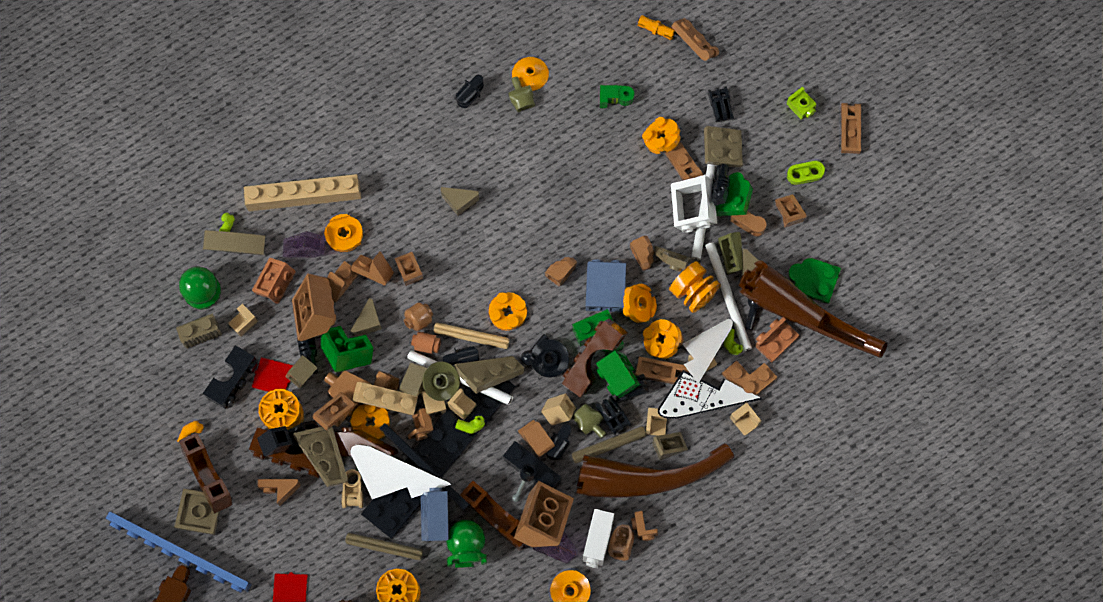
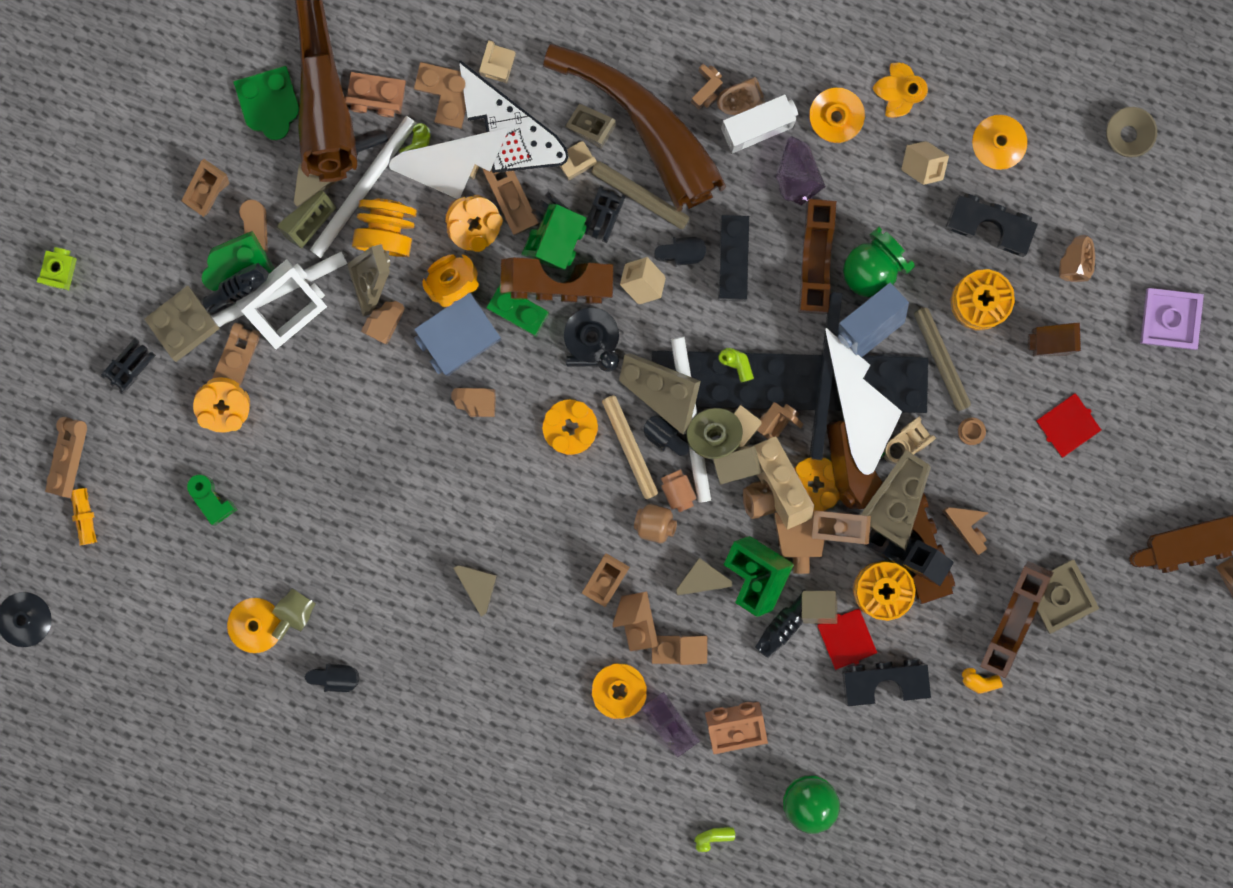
camera: 130 degrees left, 15 degrees up
(185, 557) = (1125, 593): medium blue plate -> none
(199, 331) = (861, 764): dark tan brick -> none
(234, 242) = (728, 808): dark tan slope -> none
(243, 321) = (810, 725): tan panel -> none
(302, 192) = (608, 778): tan brick -> none
(313, 307) = (738, 649): medium nougat slope -> none
(330, 532) = (971, 431): none -> medium nougat plate
(461, 404) = (722, 390): tan panel -> none
(527, 474) = (750, 254): black hinge -> none
(536, 438) = (696, 279): medium nougat slope -> none
(543, 517) = (784, 196): medium nougat slope -> none
(589, 420) = (629, 237): olive piece -> none
(805, 173) = (143, 205): lime plate -> none
(850, 128) = (46, 191): medium nougat plate -> none

